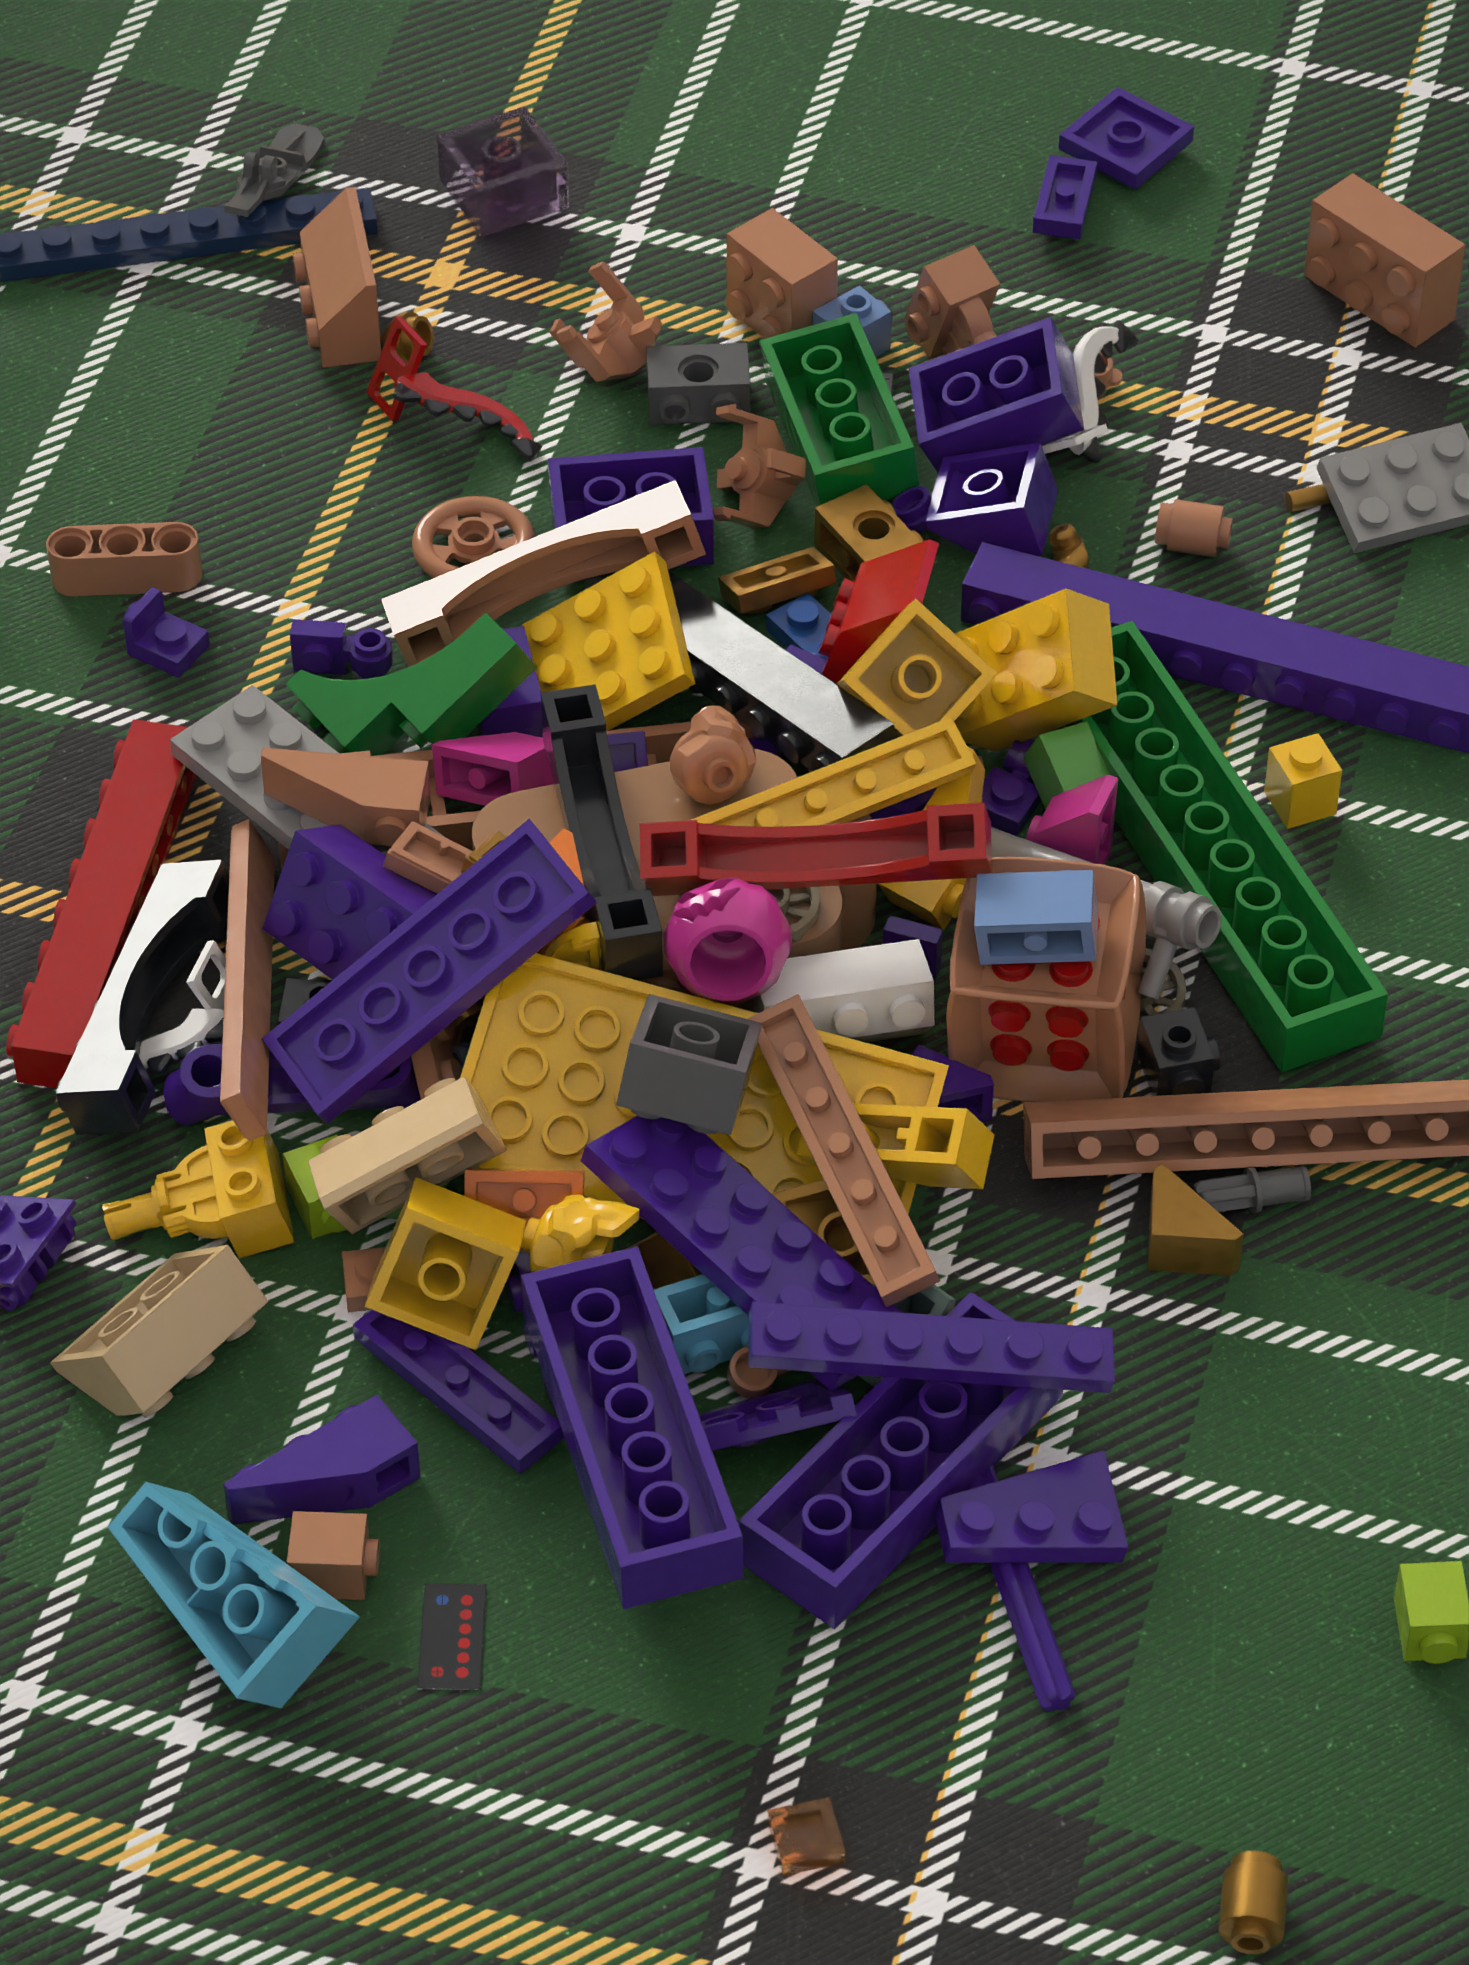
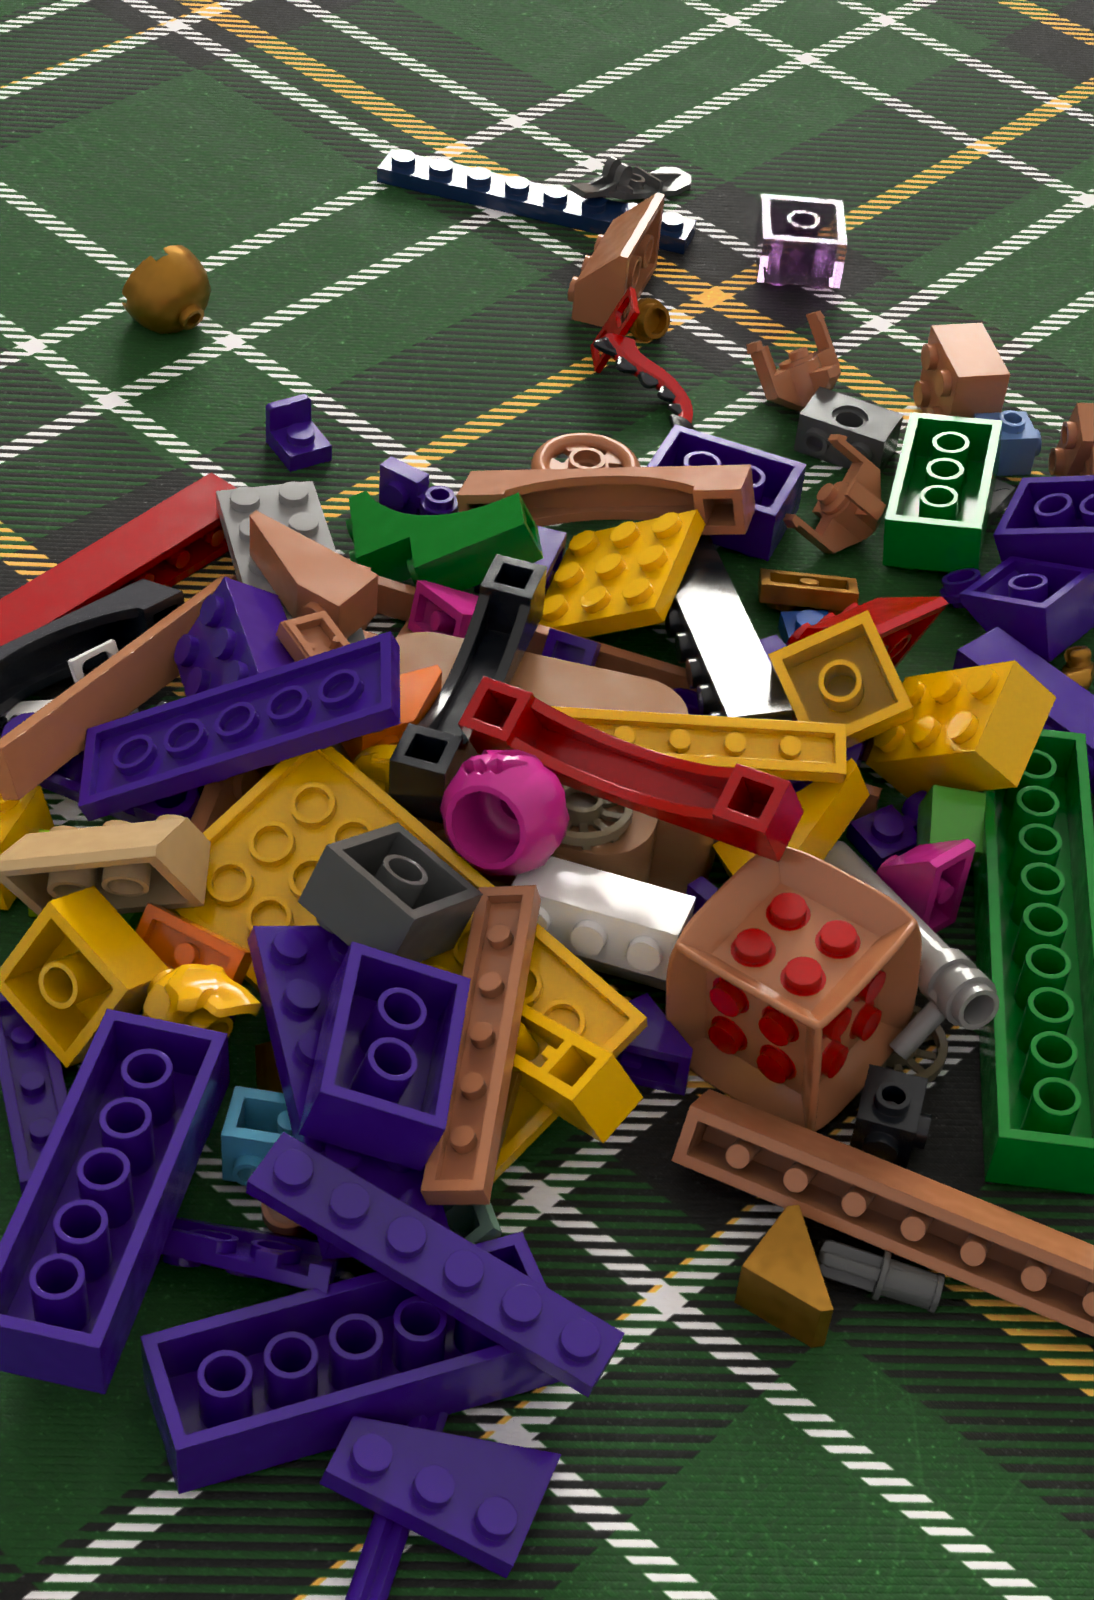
camera: 25 degrees right, 5 degrees down
(124, 558) = (298, 367): nougat beam -> none
(712, 757) = (615, 668): nougat head -> none
(788, 1199) = (386, 1057): none -> dark purple brick
(859, 530) = (907, 573): pearl gold brick -> none
(1036, 917) = (789, 911): medium blue brick -> none

